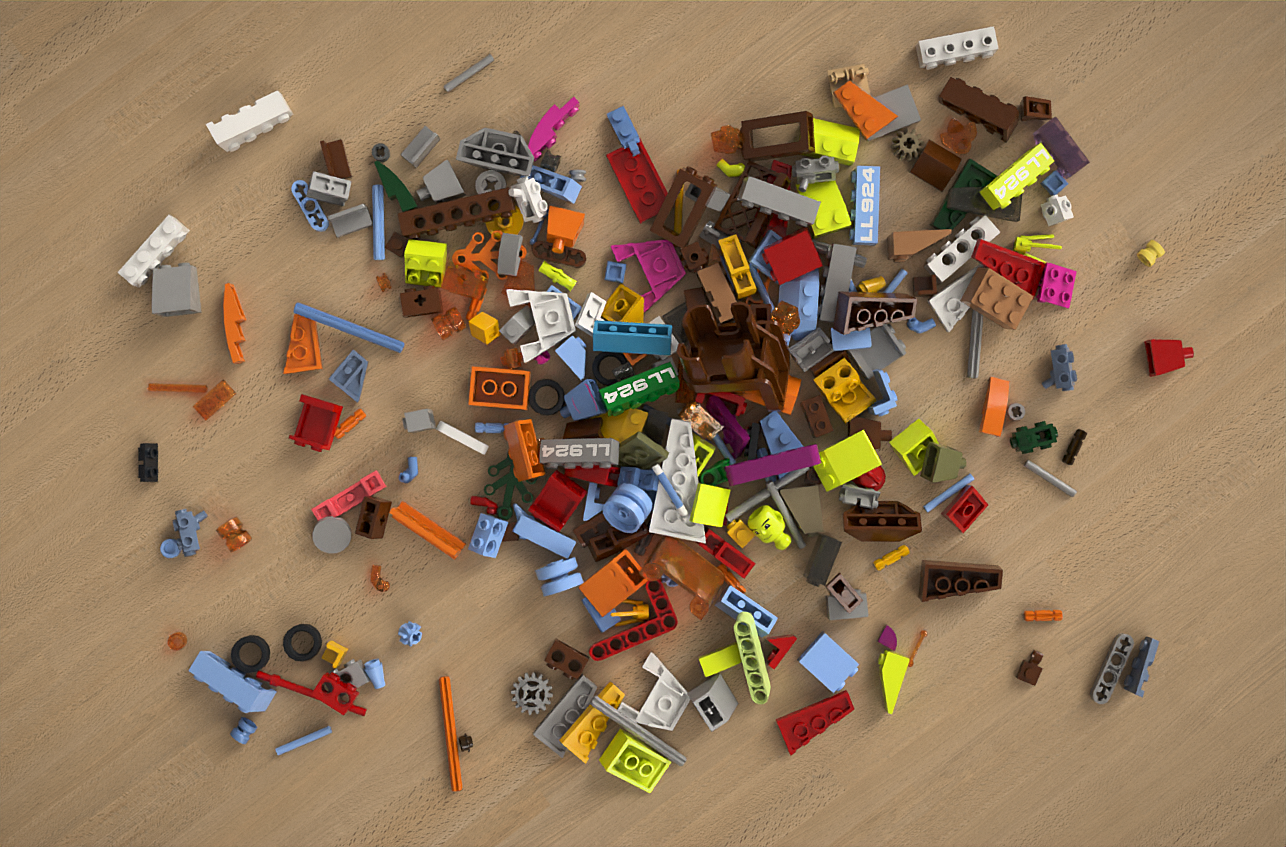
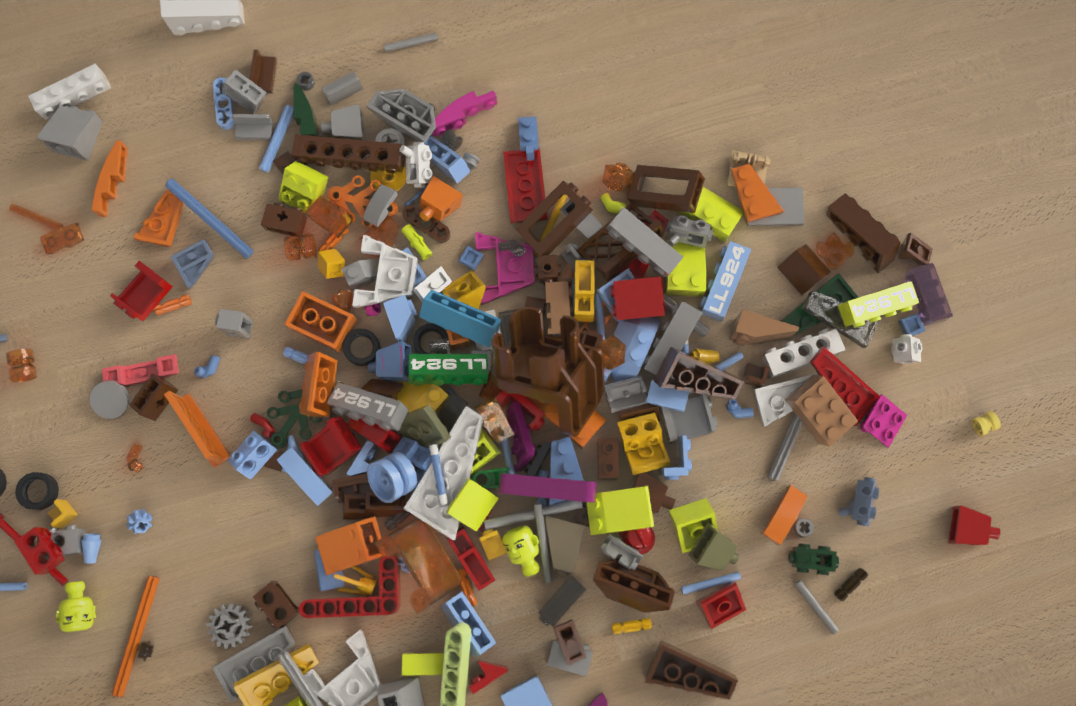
camera: 25 degrees right, 10 degrees down
(383, 282) = (258, 191): clear orange bush -> none
(389, 732) = (76, 611): none -> neon yellow piece
(462, 437) = (268, 355): white beam -> none
(558, 573) = (301, 518): light blue wheel -> none
(653, 247) = (513, 246): none -> clear smoke arm
(903, 150) = (790, 238): dark tan gear -> none
(957, 47) = (859, 171): white brick -> none
(1023, 244) = (864, 370): neon yellow plant -> none

